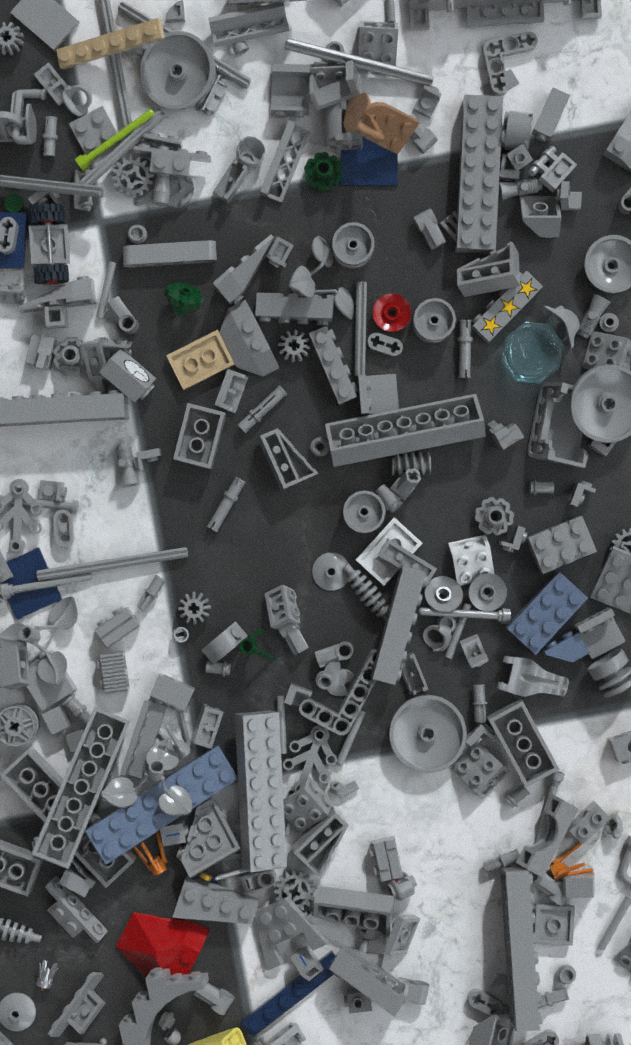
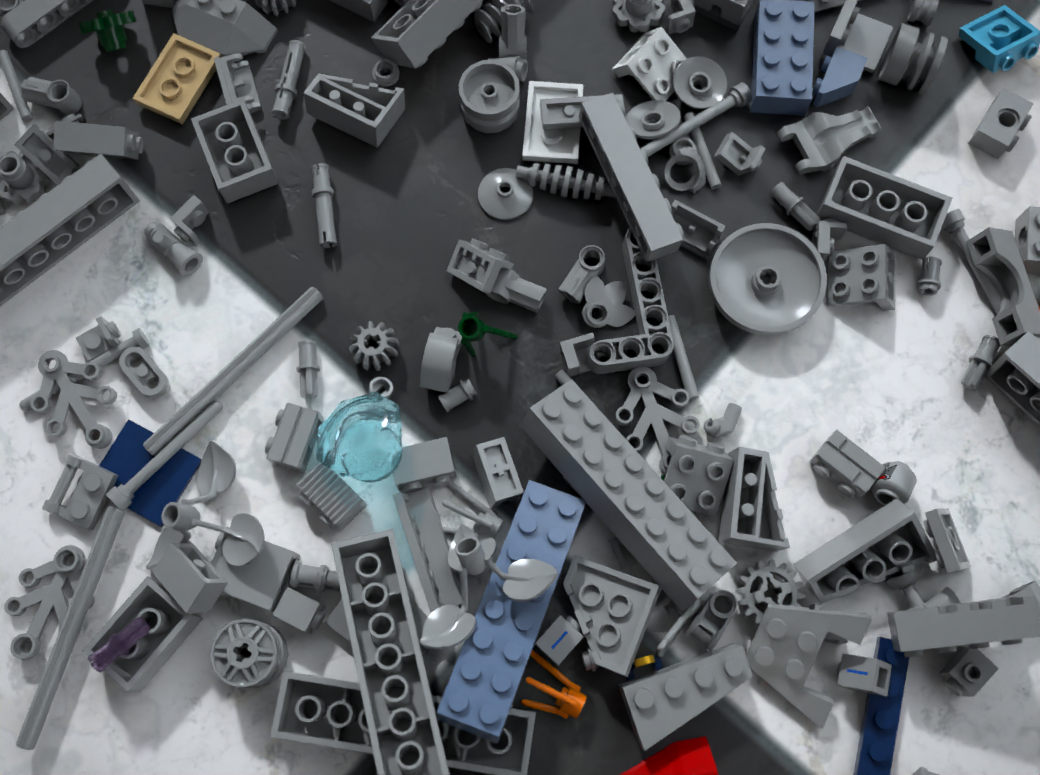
camera: 40 degrees left, 15 degrees down
(149, 657) = (362, 438): none -> clear light blue piece

